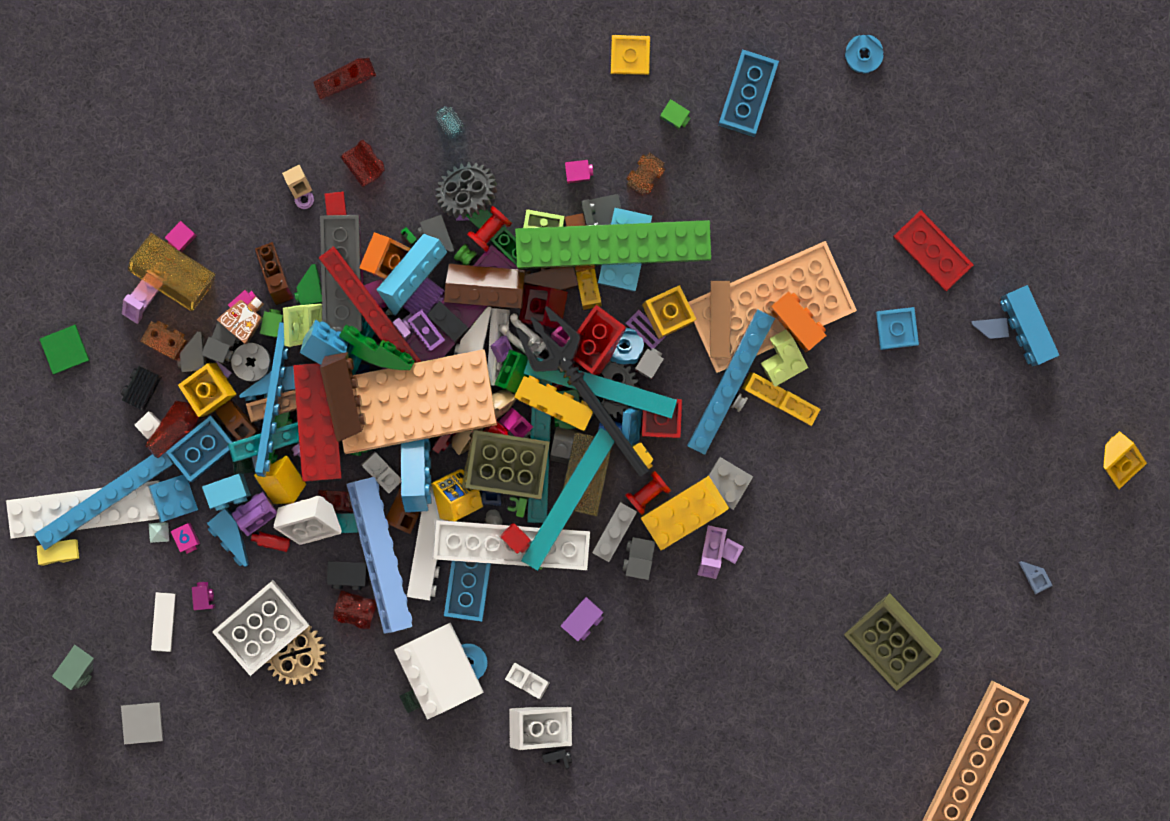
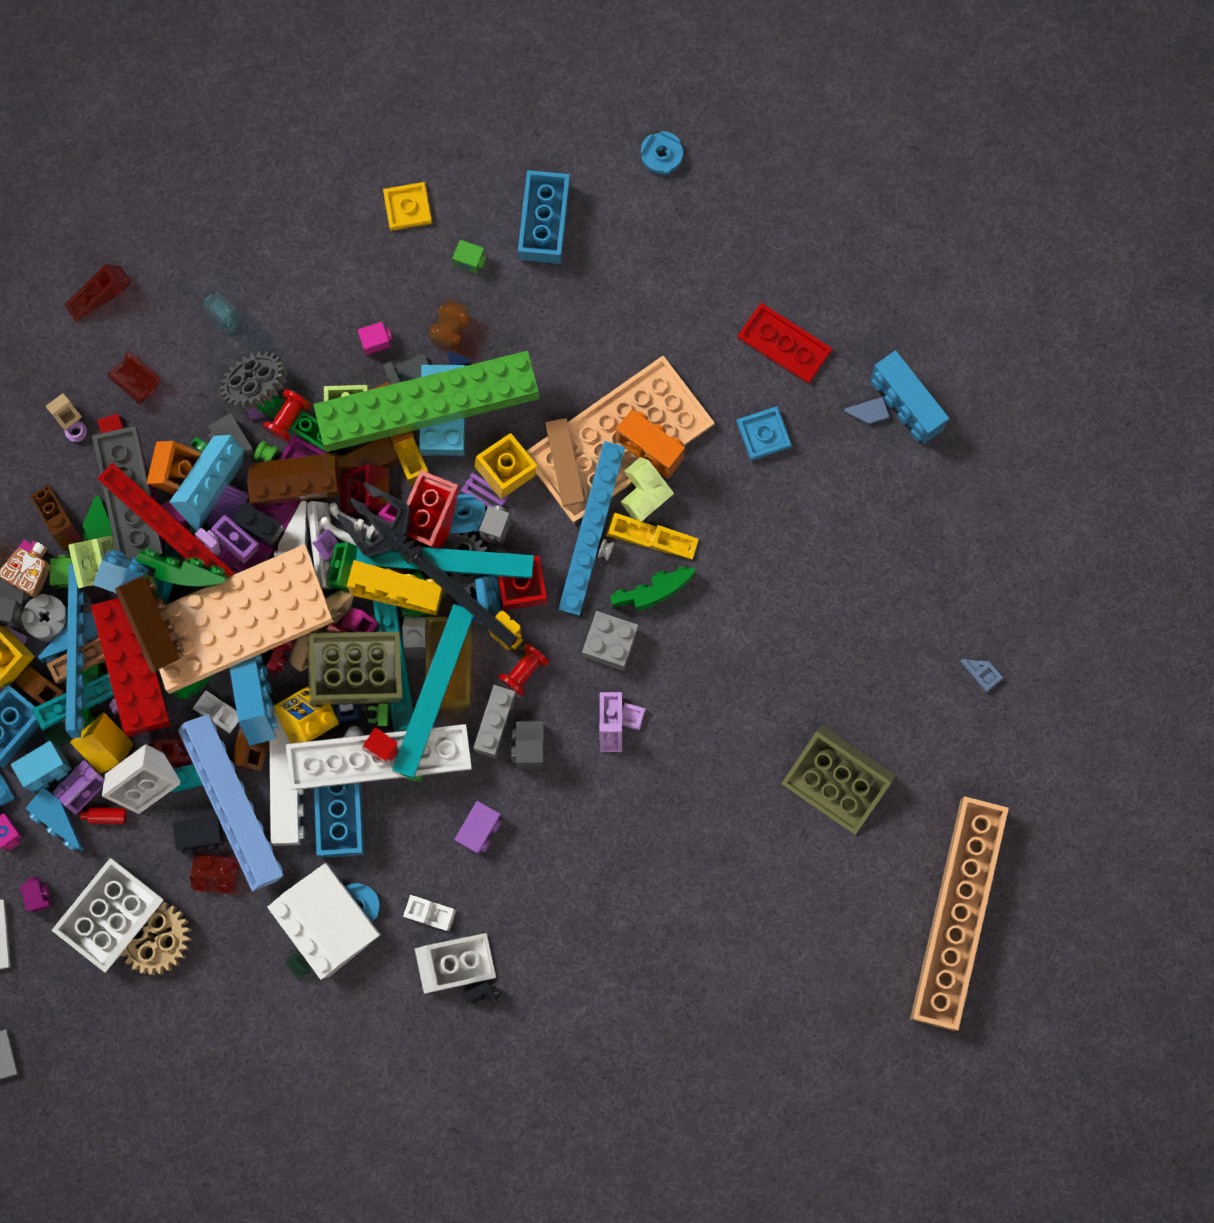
camera: 10 degrees left, 10 degrees down
(645, 208) = (456, 359): none -> dark blue slope
(684, 513) = (569, 680): yellow brick -> none
(780, 446) = (663, 587): none -> green slope
(1122, 459) = (1048, 522): yellow slope -> none

